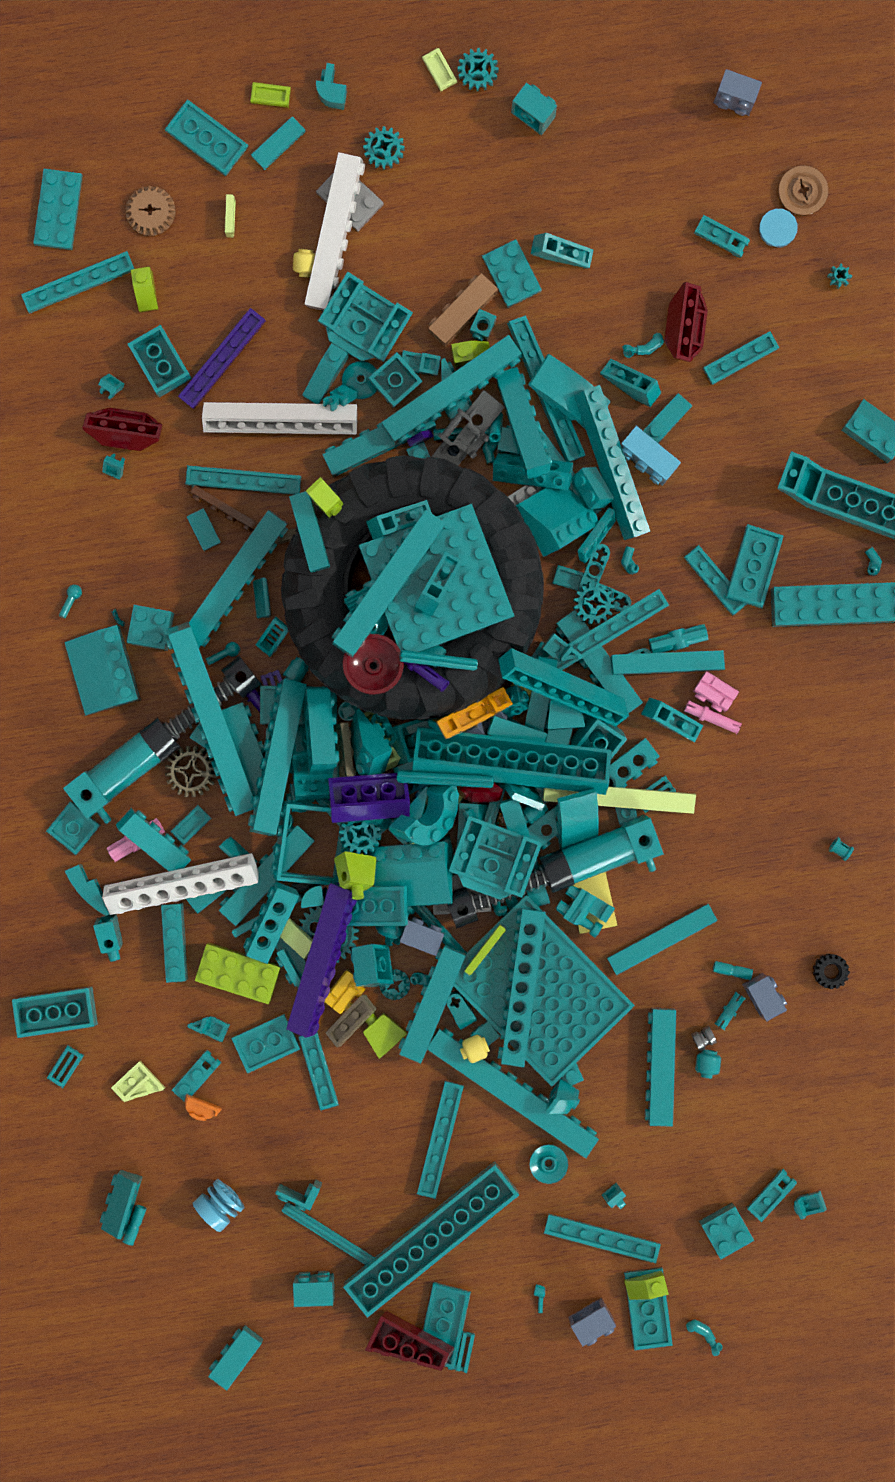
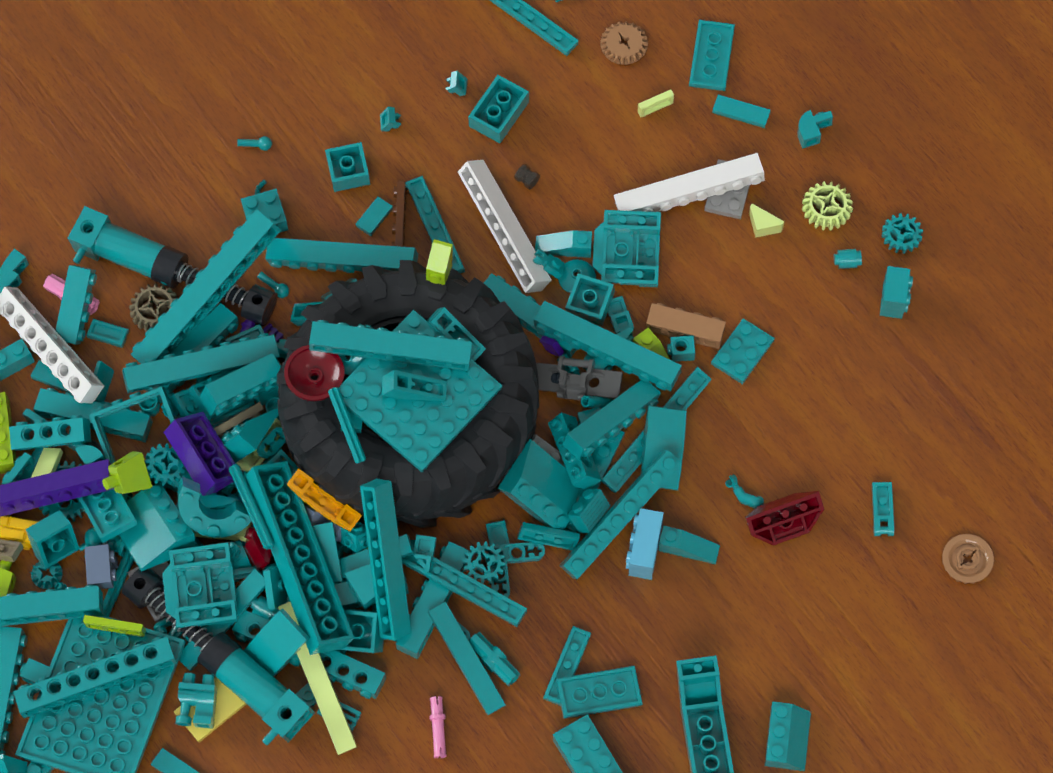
camera: 70 degrees right, 20 degrees down
(73, 828) = (54, 242): teal tile -> none
(102, 670) = (208, 197): teal slope -> none
(123, 428) = (424, 107): dark red wedge -> none
(144, 289) = (554, 69): lime slope -> none
(144, 528) = (347, 166): none -> teal brick
(222, 358) = (530, 156): dark purple plate -> none
(240, 371) = (526, 176): none -> clear smoke wheel
(270, 94) = (778, 85): lime tile -> none
(303, 262) = (650, 176): light yellow head -> none
(309, 532) = (402, 270): teal tile -> none
(377, 151) = (788, 196): teal gear -> none
(400, 186) = (764, 222): none -> yellowish green slope
(418, 451) = (541, 354): teal plate -> none
(427, 110) = (822, 196): none -> yellowish green gear
(429, 675) = (330, 427): dark purple pin -> none
(439, 69) = (883, 204): yellowish green tile -> none
(462, 1012) = (48, 641): teal piece -> none
(474, 1049) = (17, 665): light yellow head -> none
(476, 131) = (848, 258): none -> teal brick
(488, 449) = (575, 408): teal arm -> none
(561, 250) = (787, 380): teal slope -> none
(627, 562) = (541, 578): teal arm -> none
(632, 382) = (705, 498): teal slope -> none
(672, 719) = (416, 692): teal slope -> none
(715, 691) = (463, 716): bright pink brick -> none
(737, 93) = (1015, 452): sand blue brick -> none
(741, 358) = (783, 582): teal plate -> none
(778, 228) = (920, 554): medium azure tile -> none
(840, 270) = (909, 635): teal gear -> none

